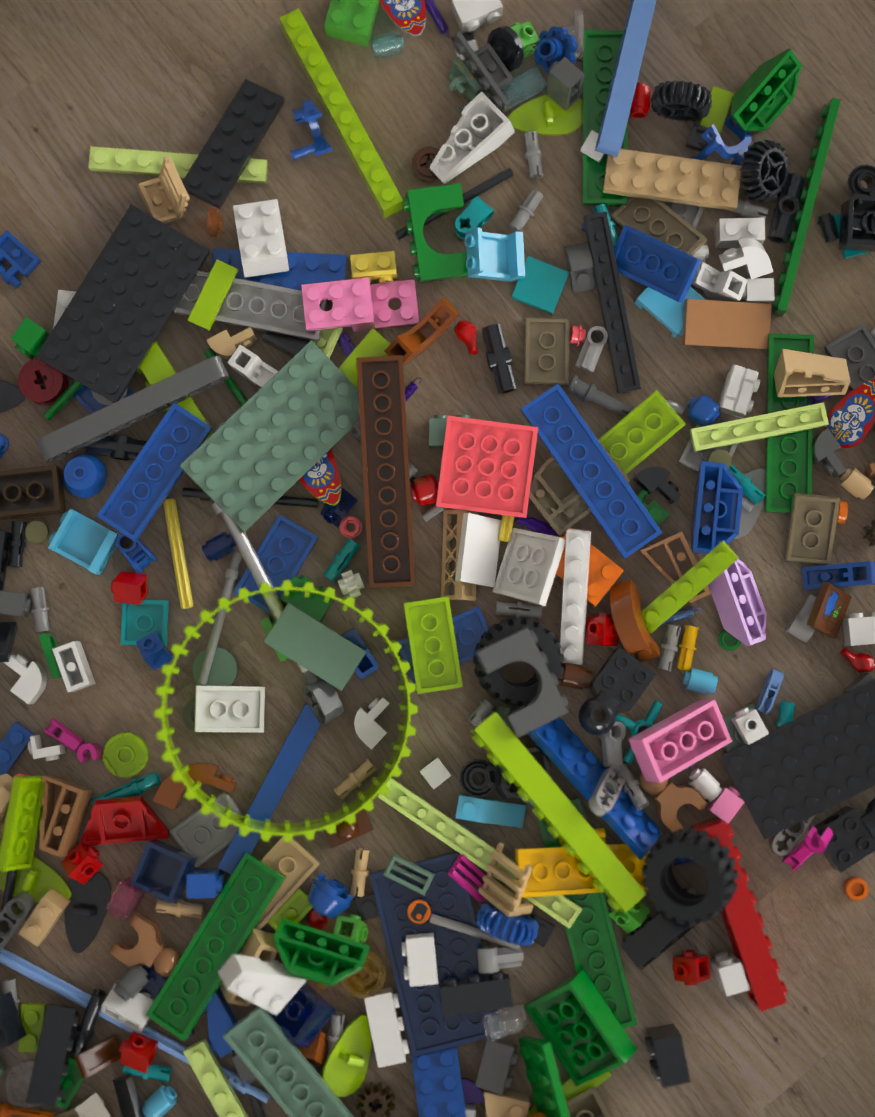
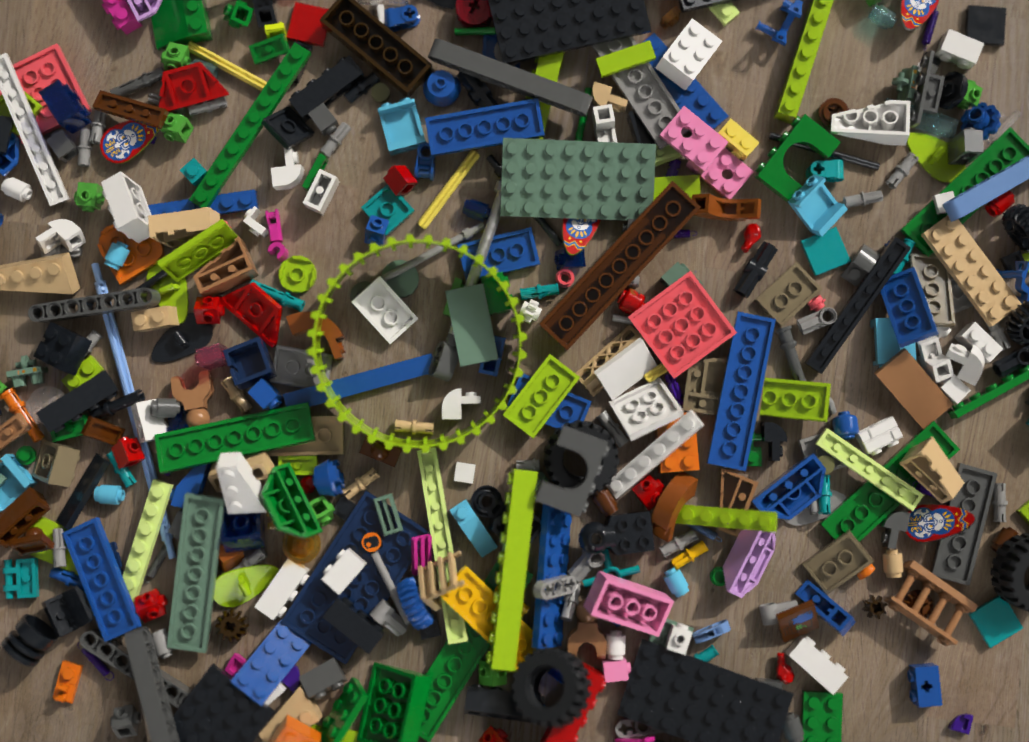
camera: 45 degrees right, 0 degrees up
(505, 1022) = (354, 659): clear tile -> none

